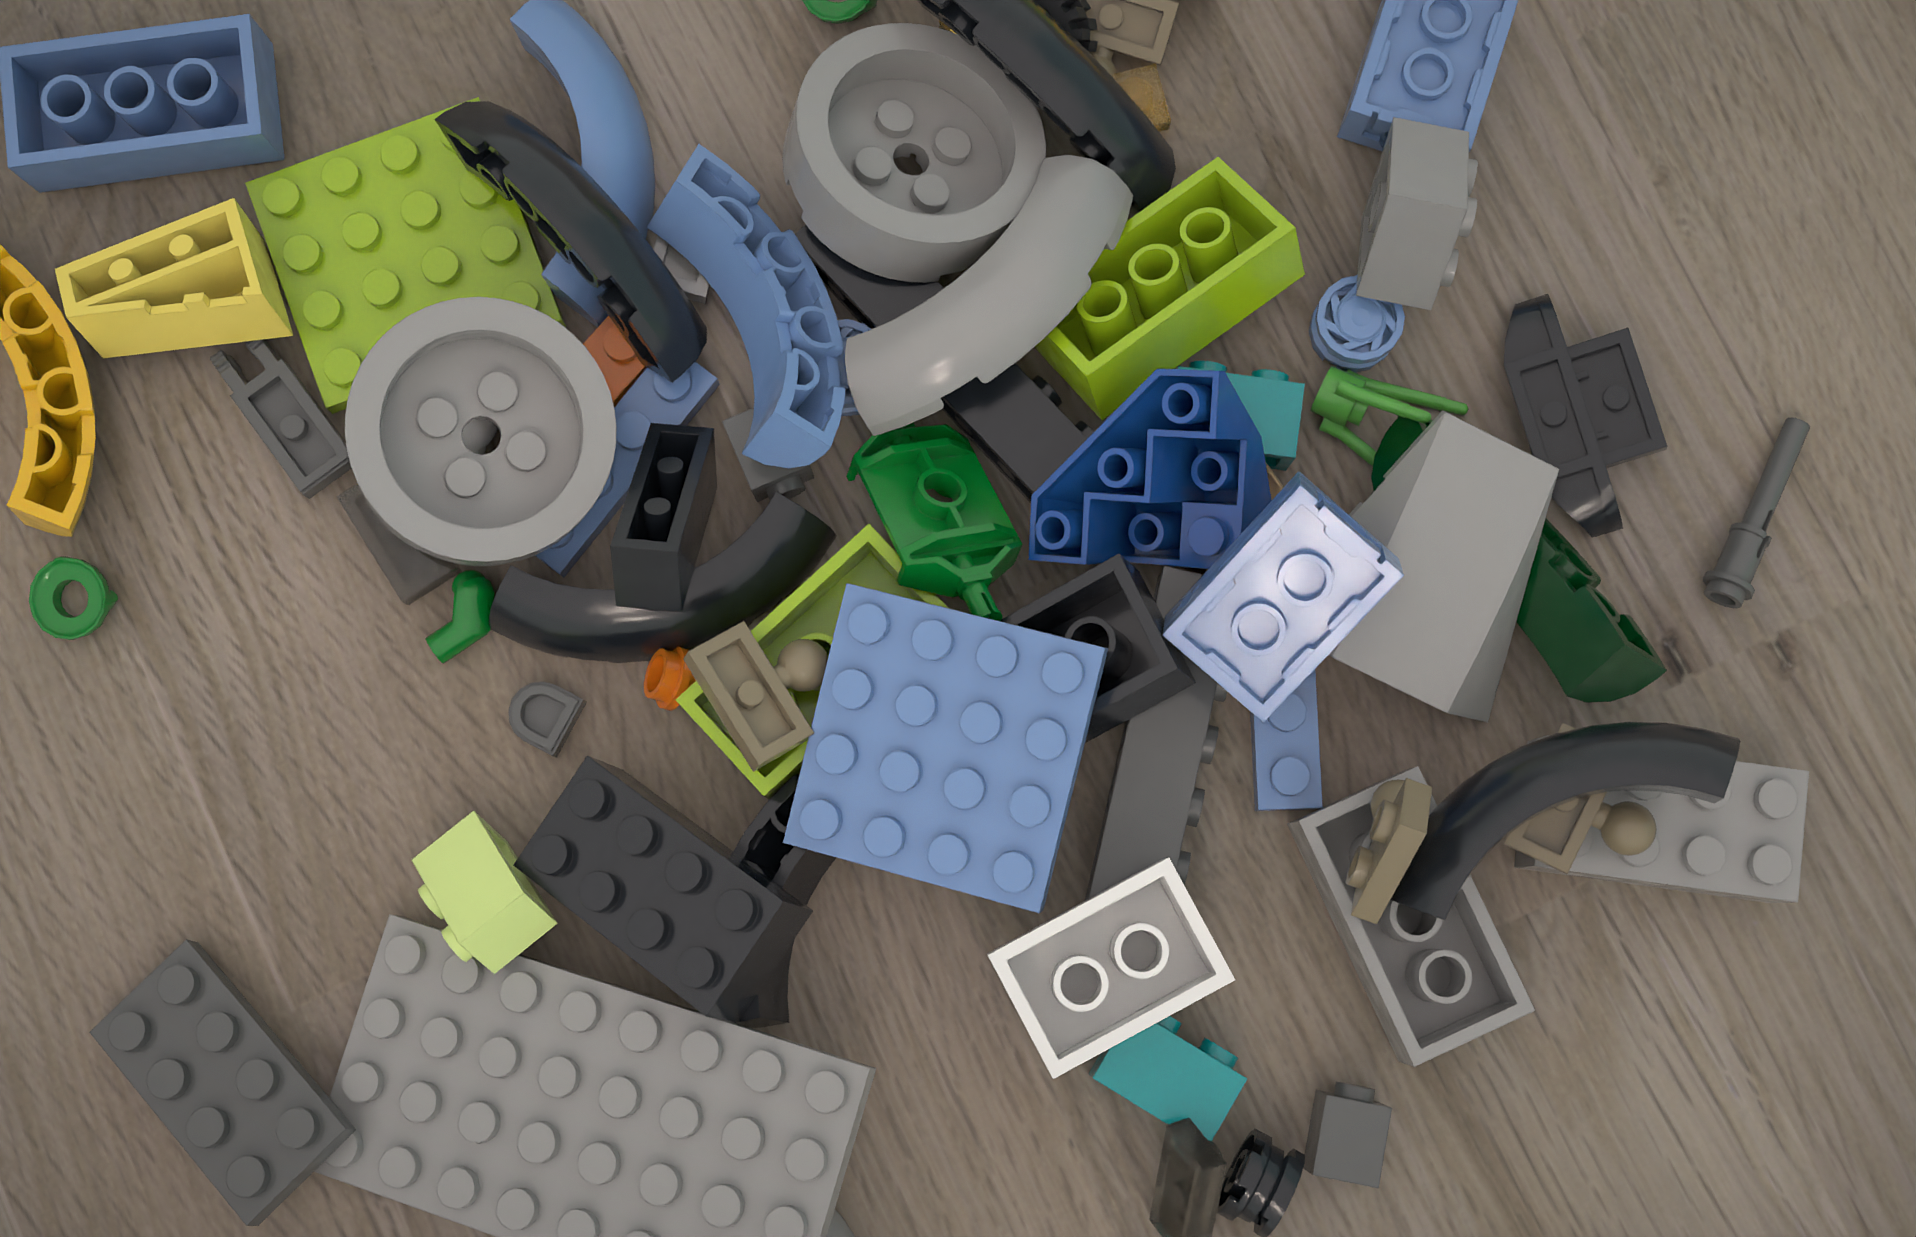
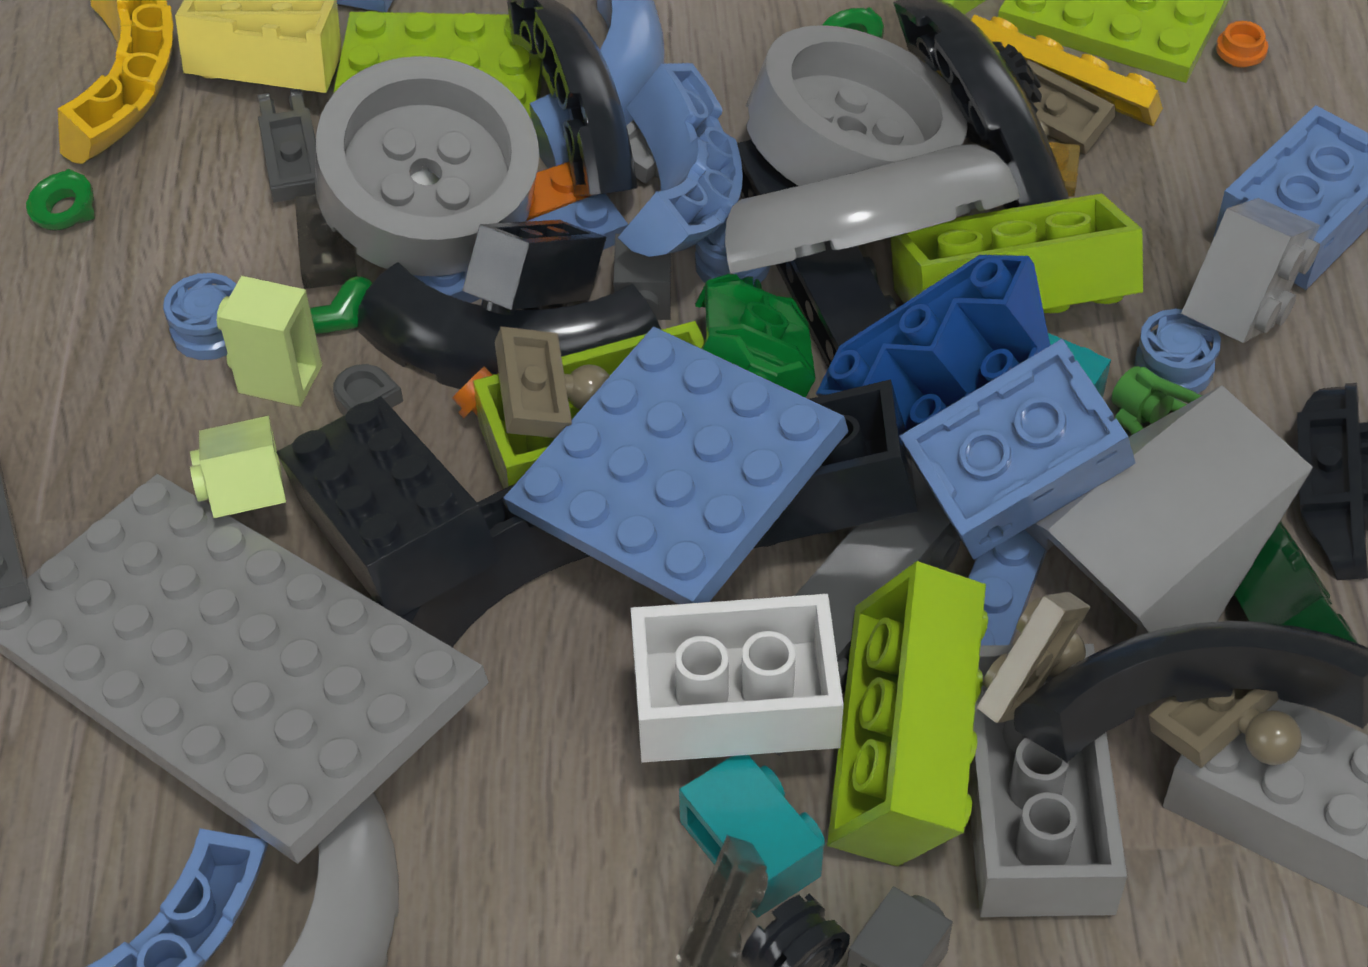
camera: 25 degrees right, 30 degrees down
(326, 693) = (194, 314): none -> medium blue wheel
(423, 720) = (270, 340): none -> yellowish green brick
(1280, 925) = (909, 716): none -> lime brick

